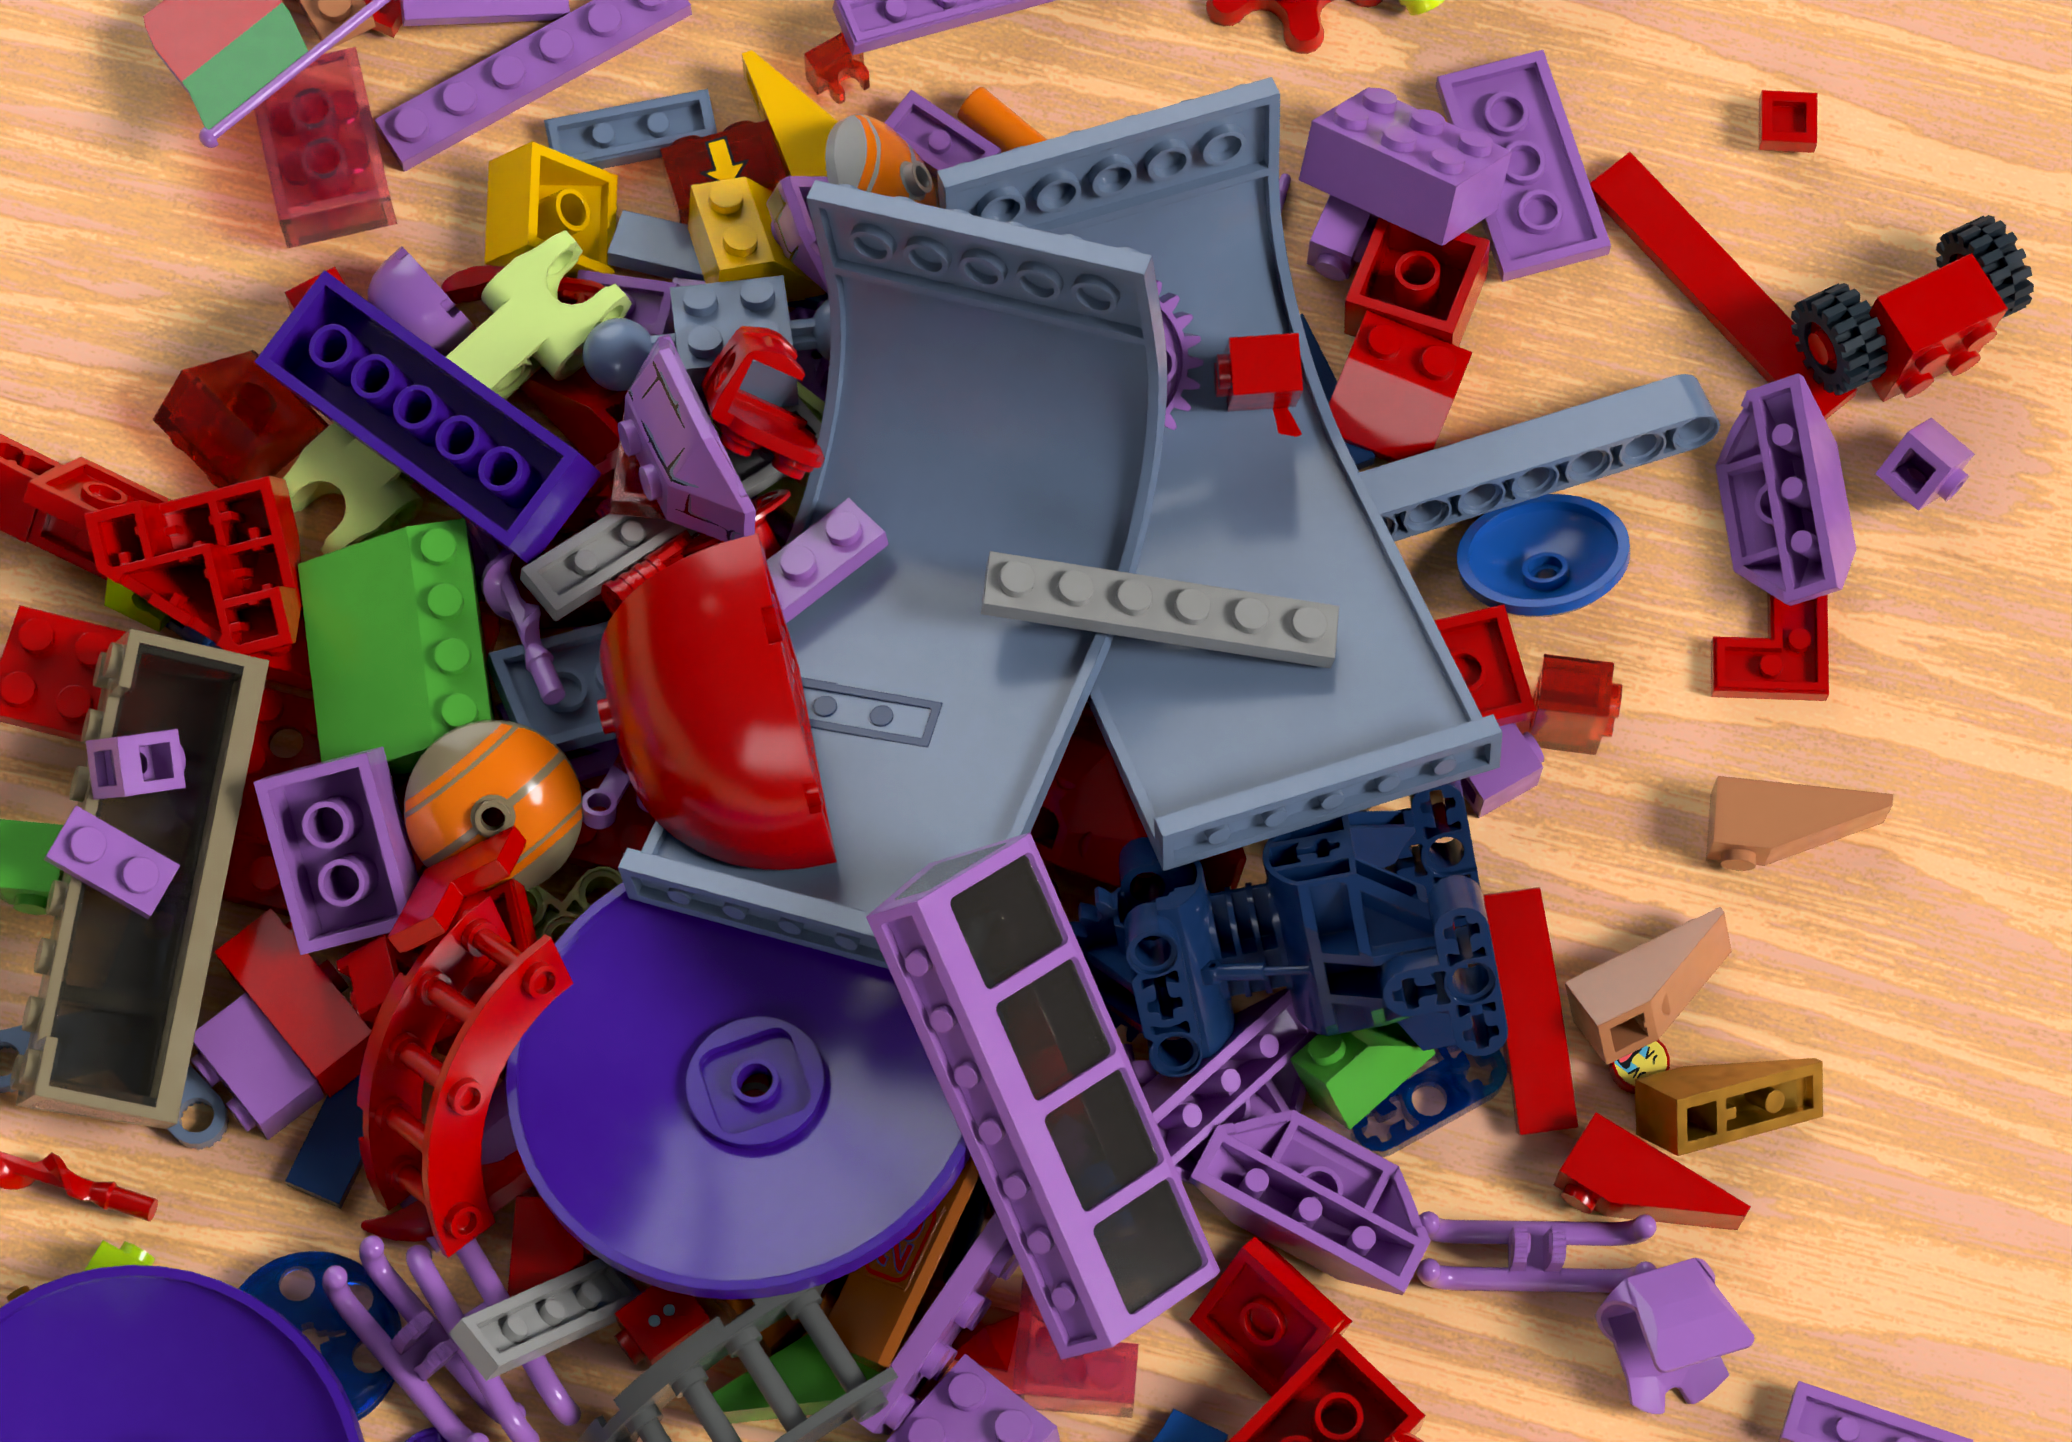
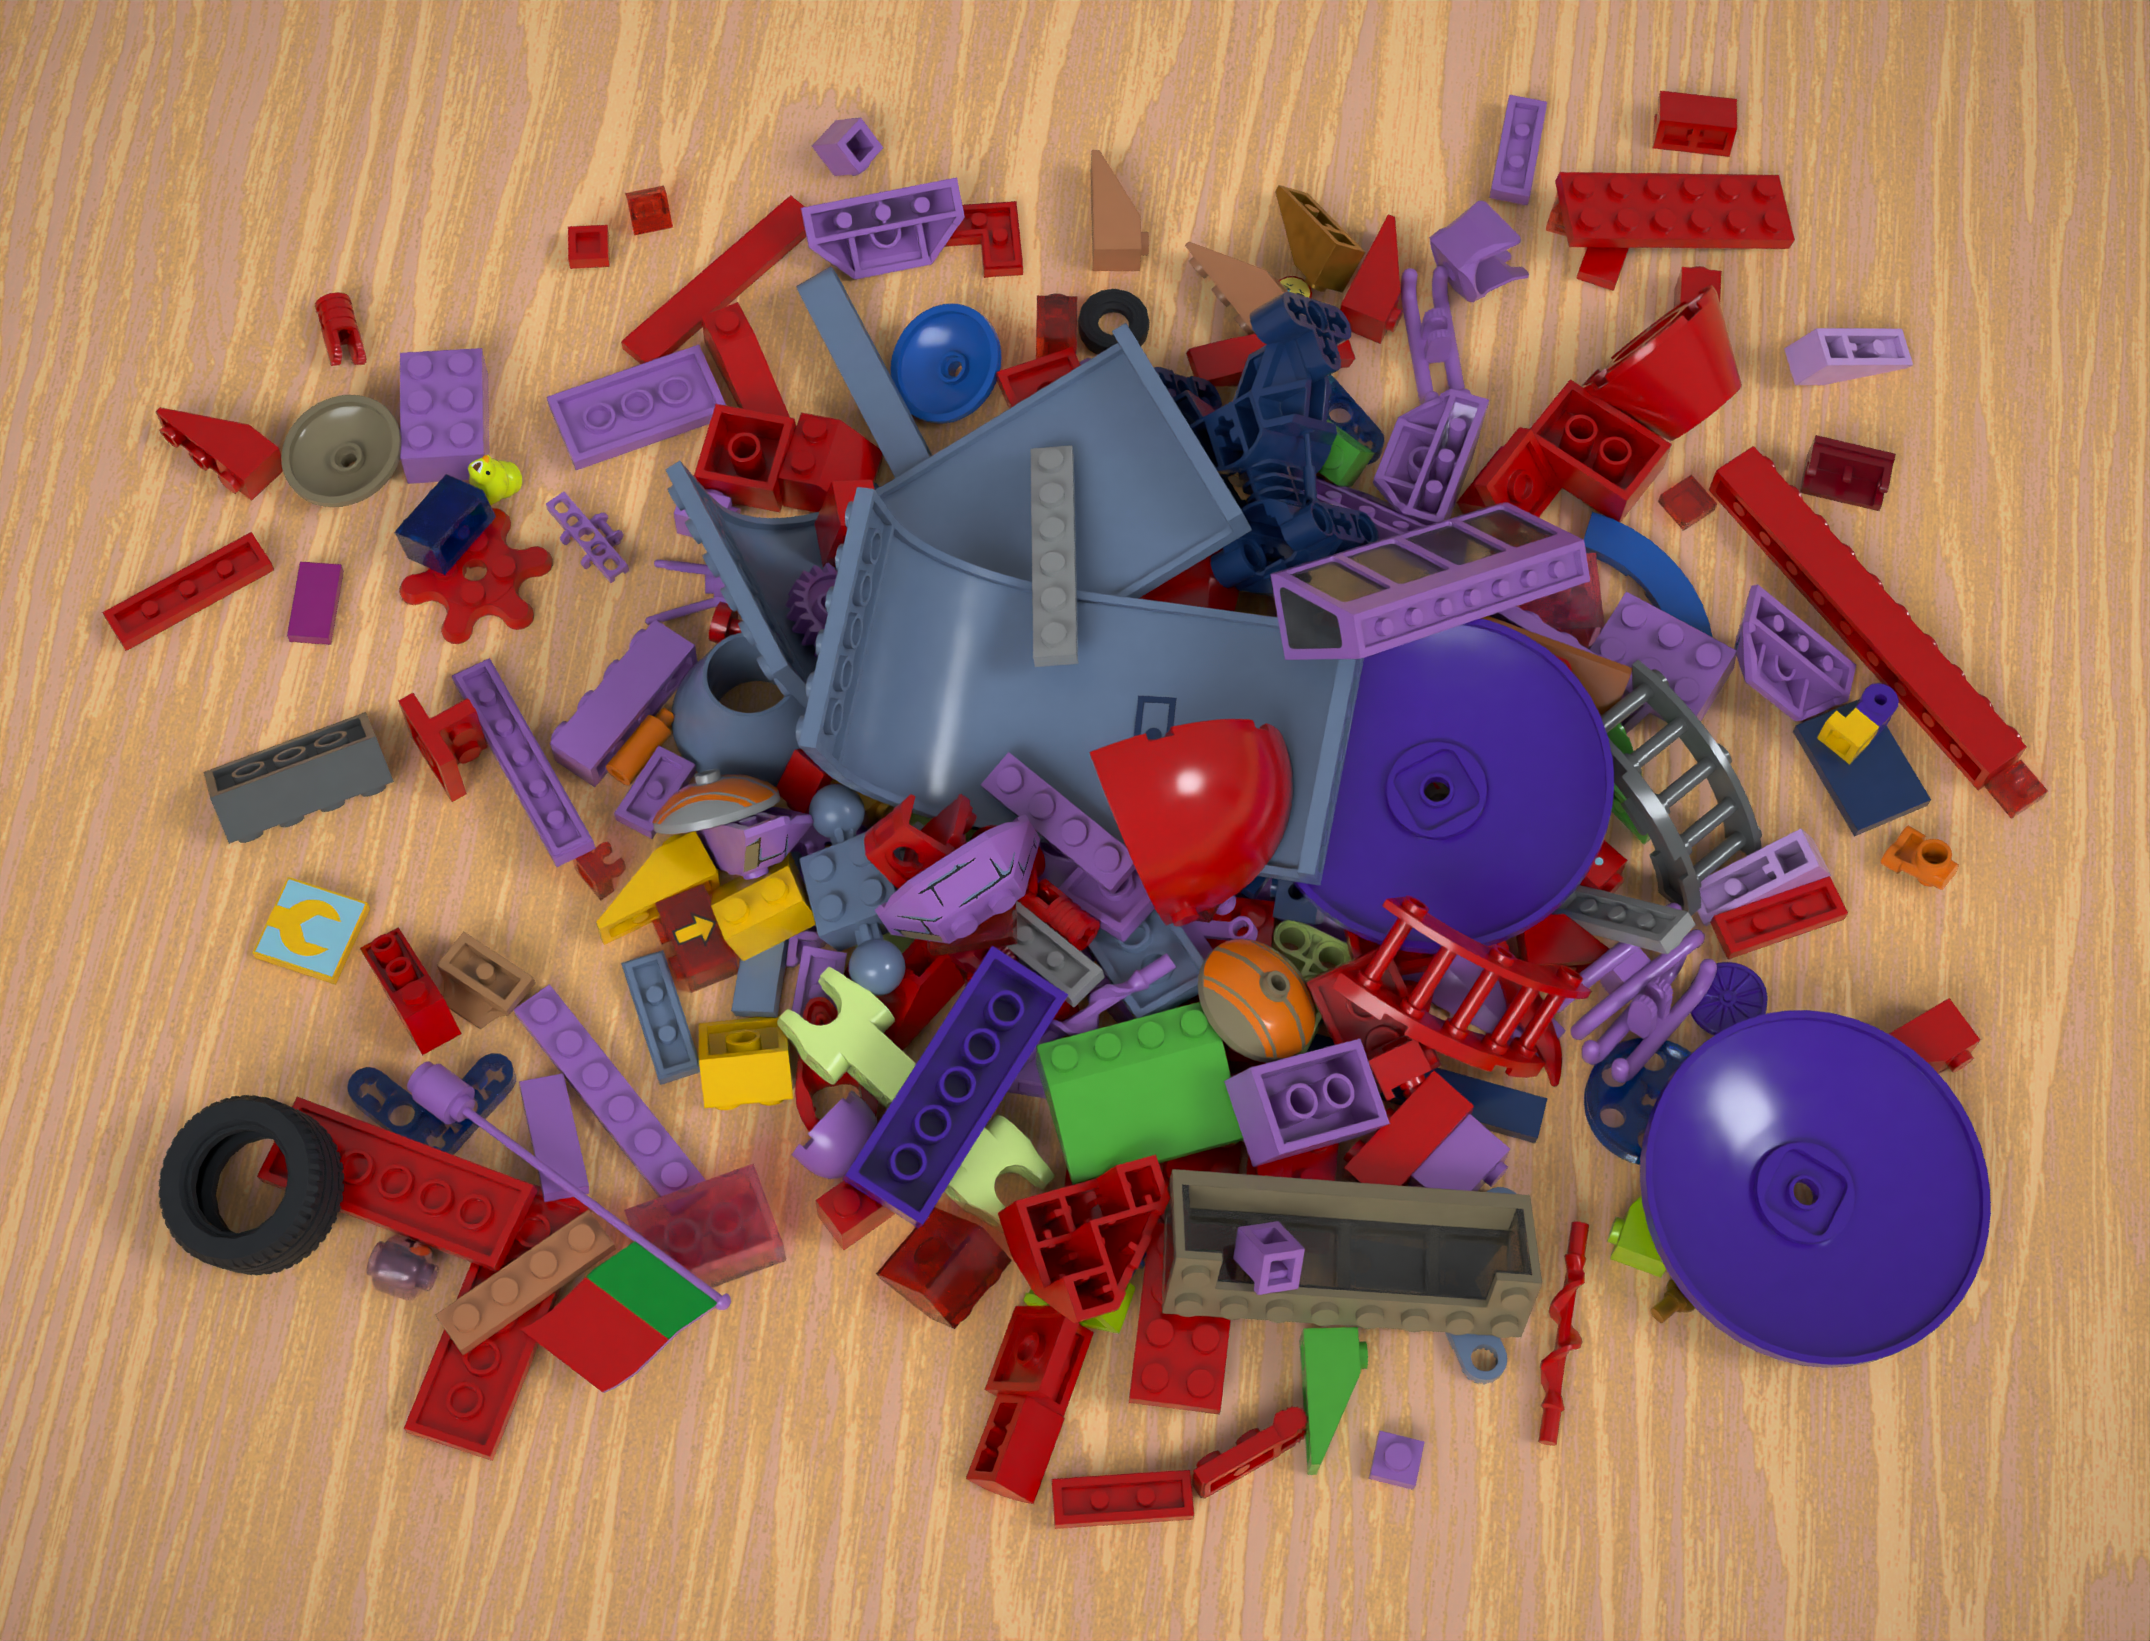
camera: 100 degrees left, 5 degrees down
(111, 862) = (1343, 1269): medium lavender plate -> none
(449, 882) = (1328, 1014): red tile -> none
(1039, 82) = (630, 691): none -> medium lavender brick
(1343, 86) = (585, 526): none -> medium lavender piece
(1405, 165) = (659, 435): medium lavender brick -> none
(1570, 302) = (741, 360): none -> red slope
(1618, 771) = (1107, 302): none -> black tyre
(1842, 200) = (649, 210): none -> clear red tile
(1920, 326) = (745, 142): brick -> none

